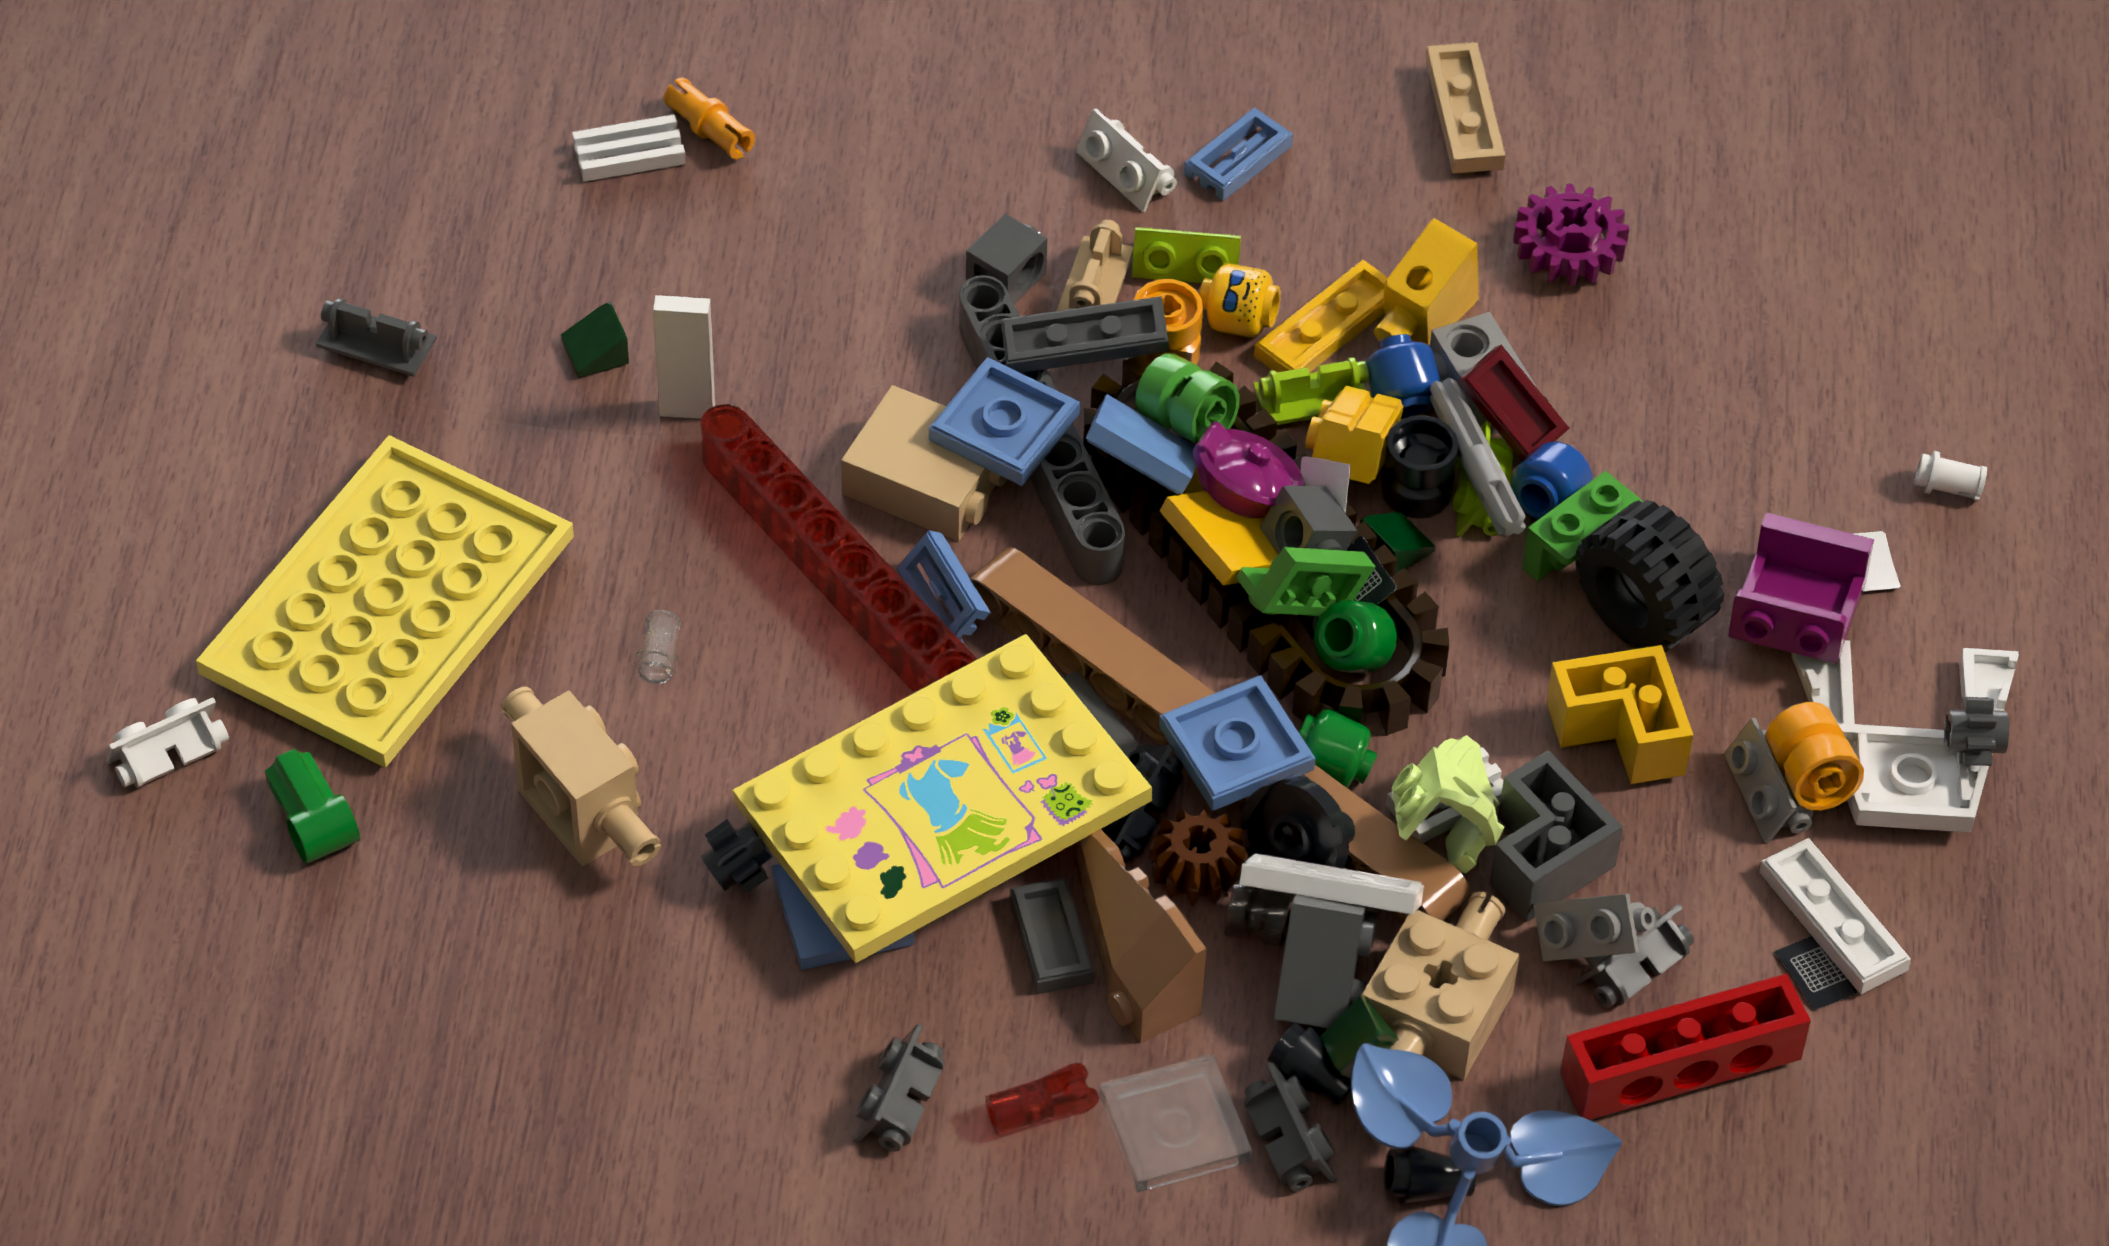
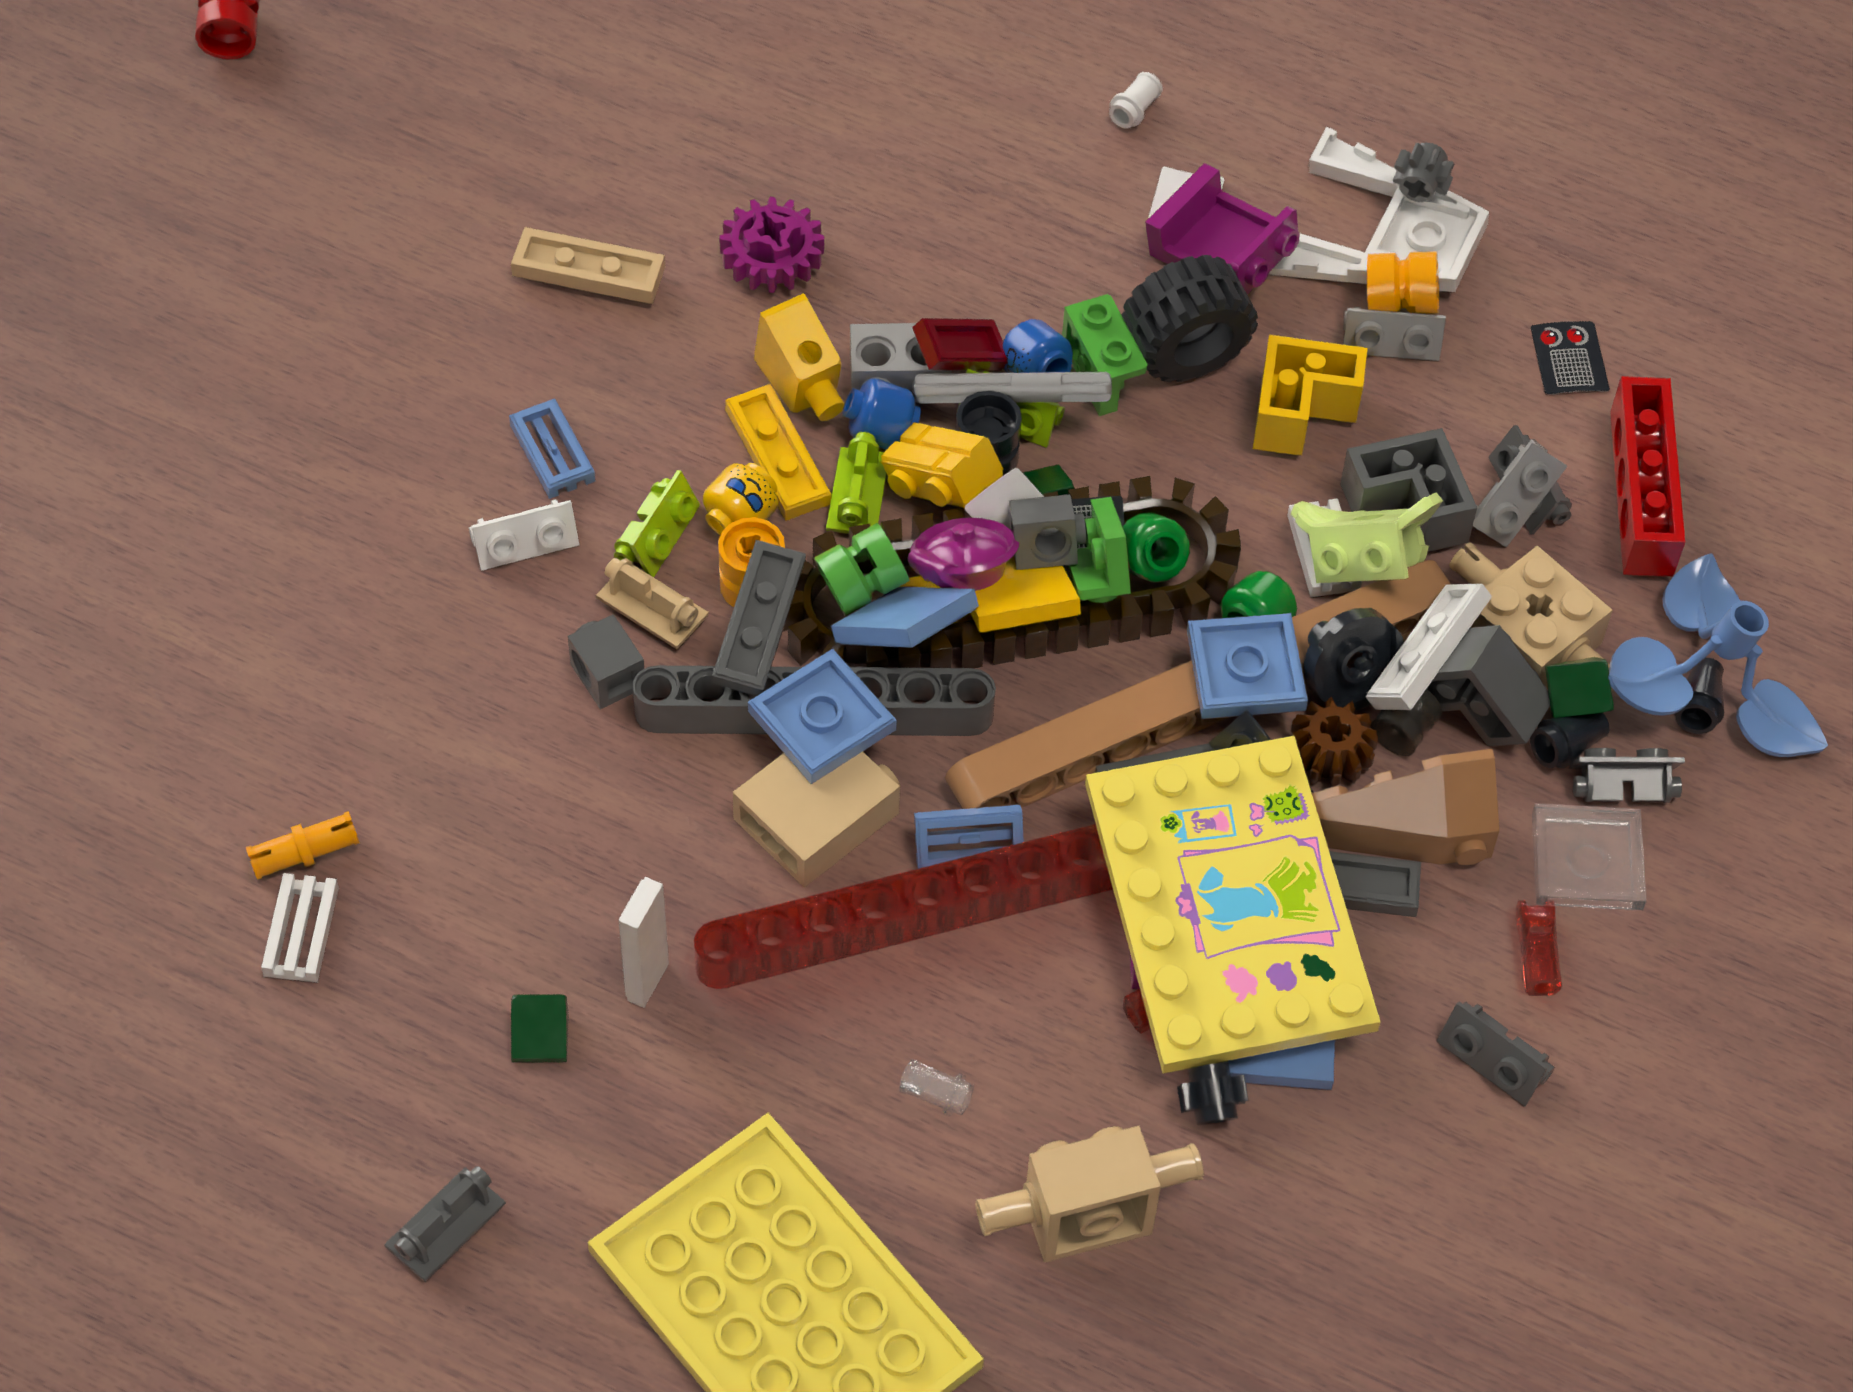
camera: 70 degrees left, 5 degrees up
(1835, 916) = (1532, 340): white tile -> none

